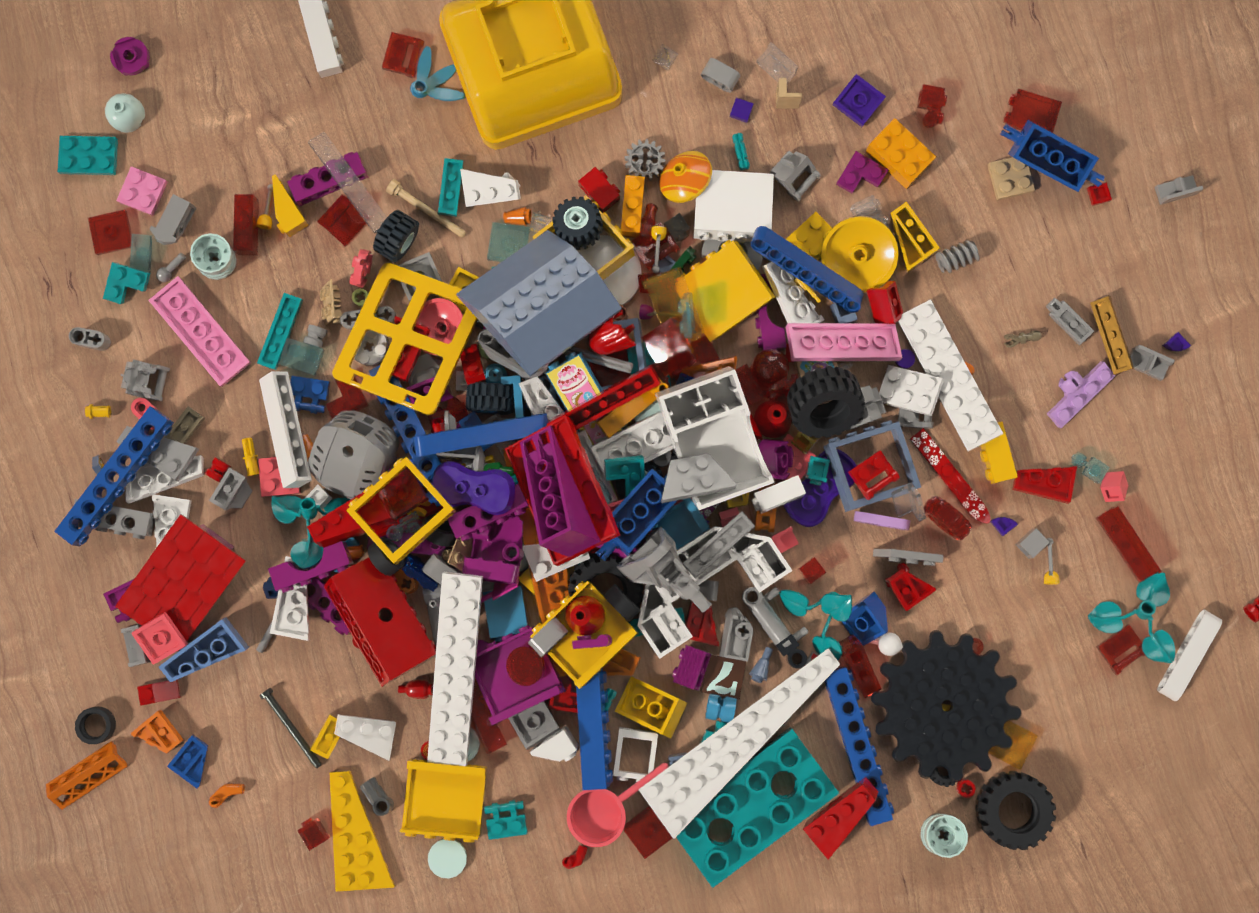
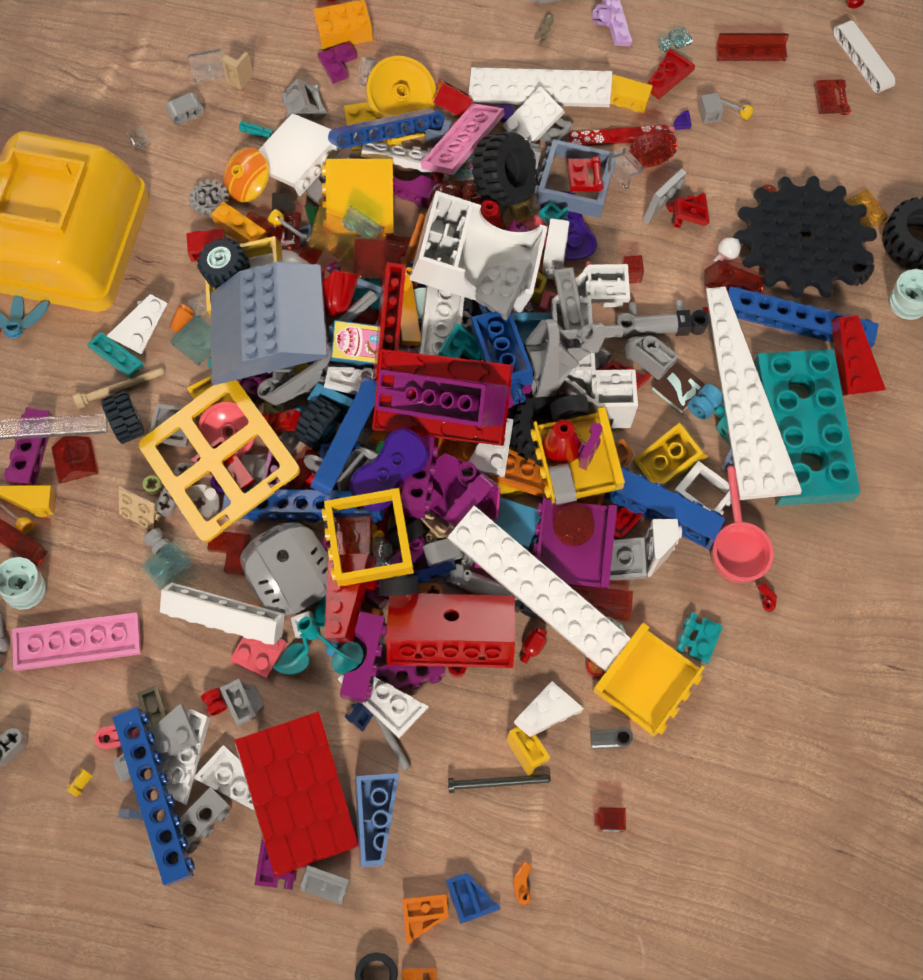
camera: 65 degrees left, 15 degrees down
(137, 376) = (77, 724): light grey piece -> none
(158, 692) = (383, 890): red slope -> none
(159, 638) = (334, 849): coral plate -> none
(250, 457) = (223, 665): yellow axle -> none
(279, 331) = (130, 570): teal plate -> none
(309, 388) = (202, 574): blue plate -> none
(355, 845) = (649, 790): yellow wing -> none
(362, 266) = (133, 469): coral plate -> none
(447, 858) = (704, 710): light aqua tile -> none
(647, 832) = (779, 522): clear red plate -> none
(691, 667) = (657, 404): magenta brick -> none
(741, 110) = (223, 112): dark purple tile -> none
(760, 670) = (692, 355): sand blue cone -> none
(832, 603) = (676, 252): teal plant -> none
(859, 100) = (280, 30): dark purple plate -> none
(867, 619) = (697, 253): blue slope -> none
(881, 520) = (624, 198): lavender beam -> none
(913, 238) = (416, 46): yellow wedge -> none
(957, 255) = (451, 33): light grey piece -> none
(971, 791) = (885, 260): red bush -> none
(1114, 486) = (702, 32): coral panel -> none
(1154, 593) = (799, 52): teal plant -> none

